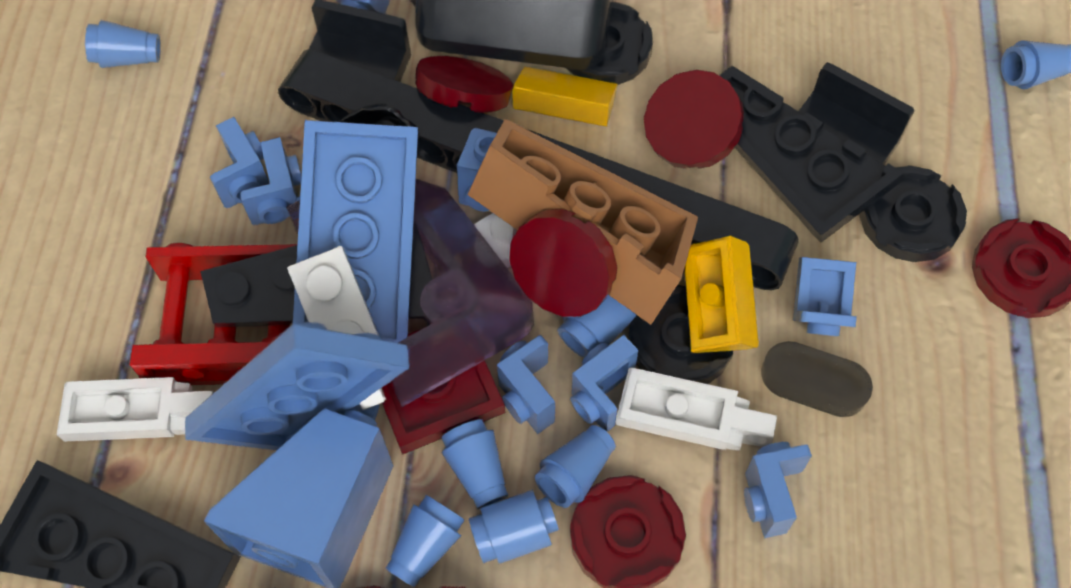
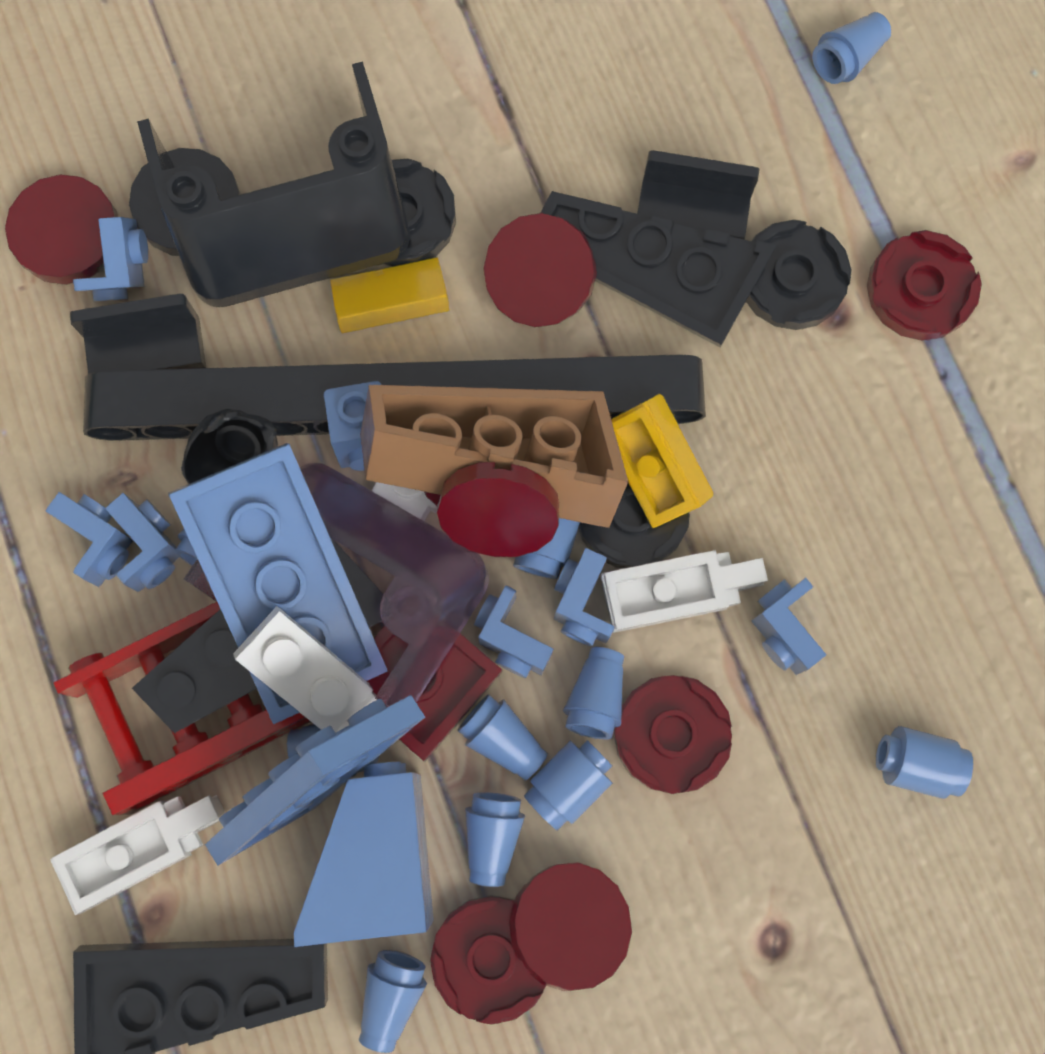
camera: 30 degrees left, 15 degrees up
(461, 79) = (281, 335): dark red tile -> none
(816, 379) = (777, 495): clear smoke tile -> none
(824, 295) = (752, 409): medium blue bracket -> none

